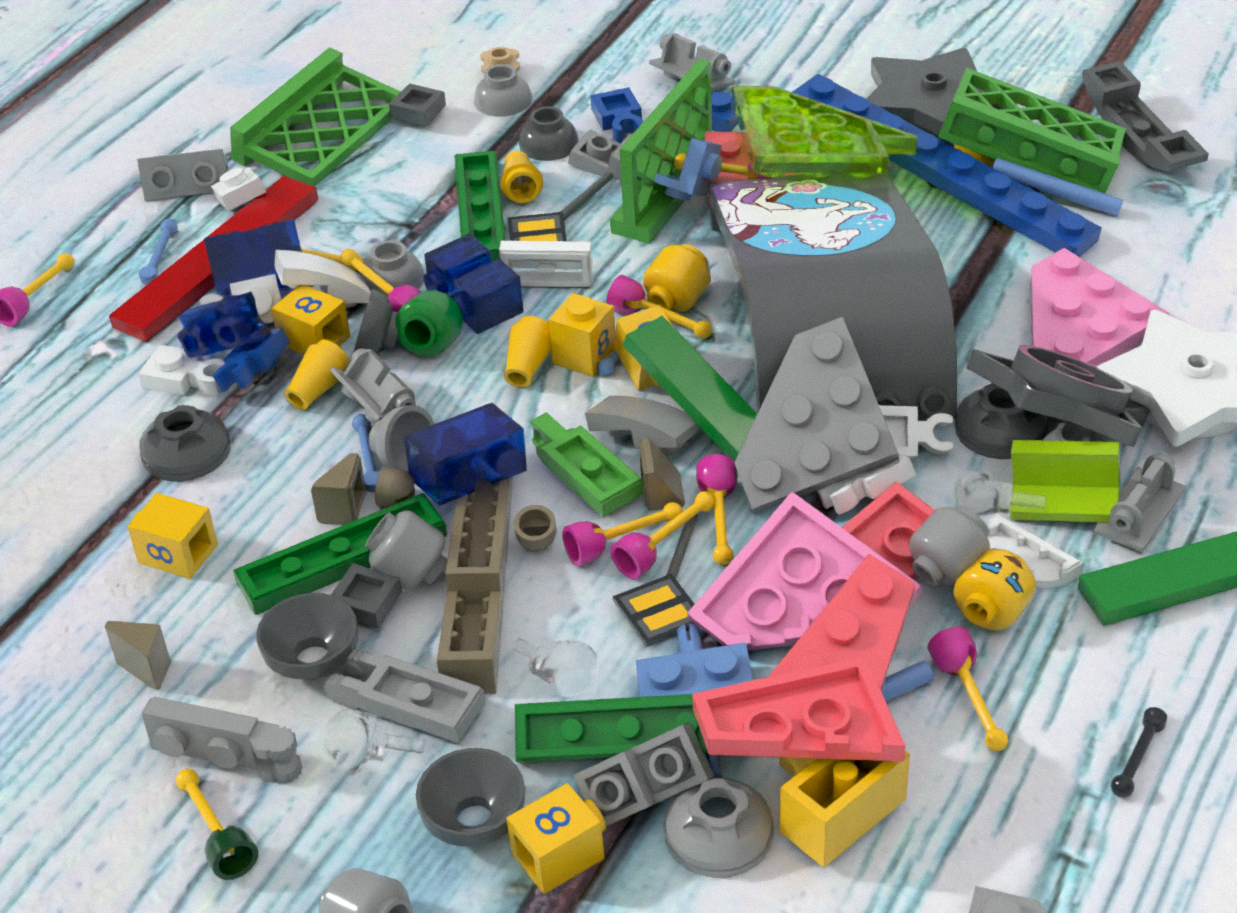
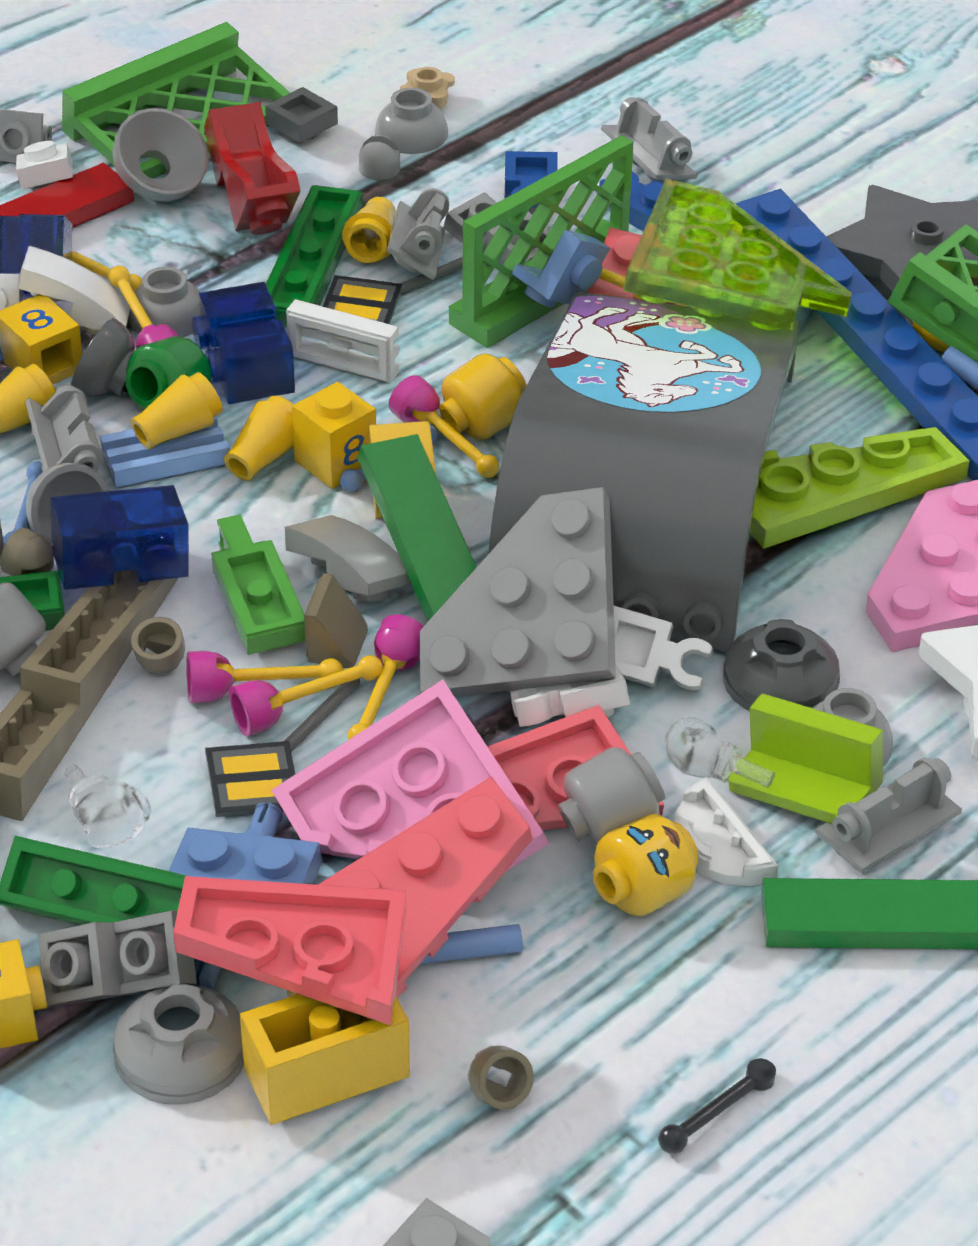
camera: 15 degrees right, 0 degrees up
(336, 148) = (168, 139): none -> light grey piece
(418, 161) = (256, 178): none -> red arch
(454, 378) = (134, 464): none -> light blue tile
(458, 344) = (180, 410): none -> yellow cone
(492, 123) = (379, 158): none -> light grey hinge
(548, 135) = (439, 172): dark grey piece -> none
(562, 169) = (417, 233): none -> light grey hinge
(956, 654) = (560, 927): hinge -> none
(990, 263) = (843, 483): none -> lime wing
(990, 777) = (495, 1093): none -> dark tan hinge
(1065, 390) = (857, 651): dark grey plate -> none

